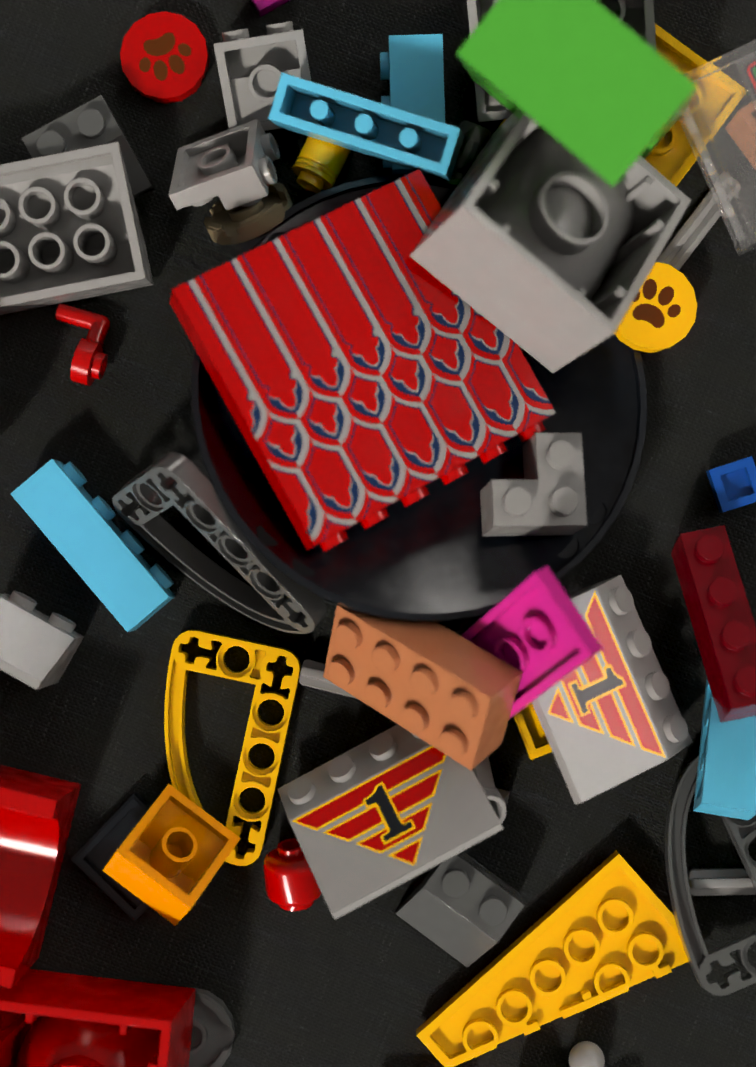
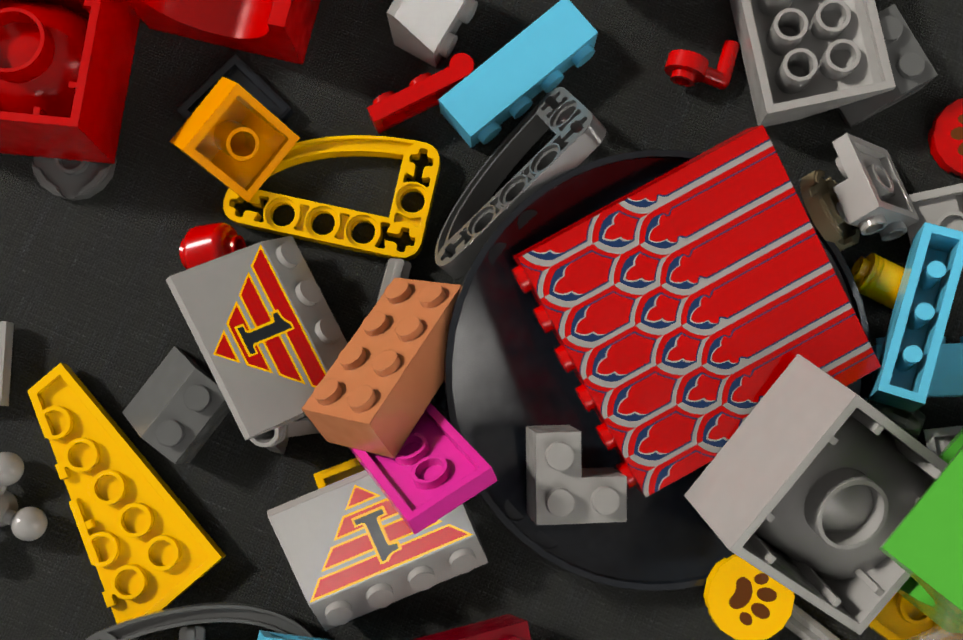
camera: 90 degrees right, 5 degrees down
(117, 649) = (421, 94): none -> red plate

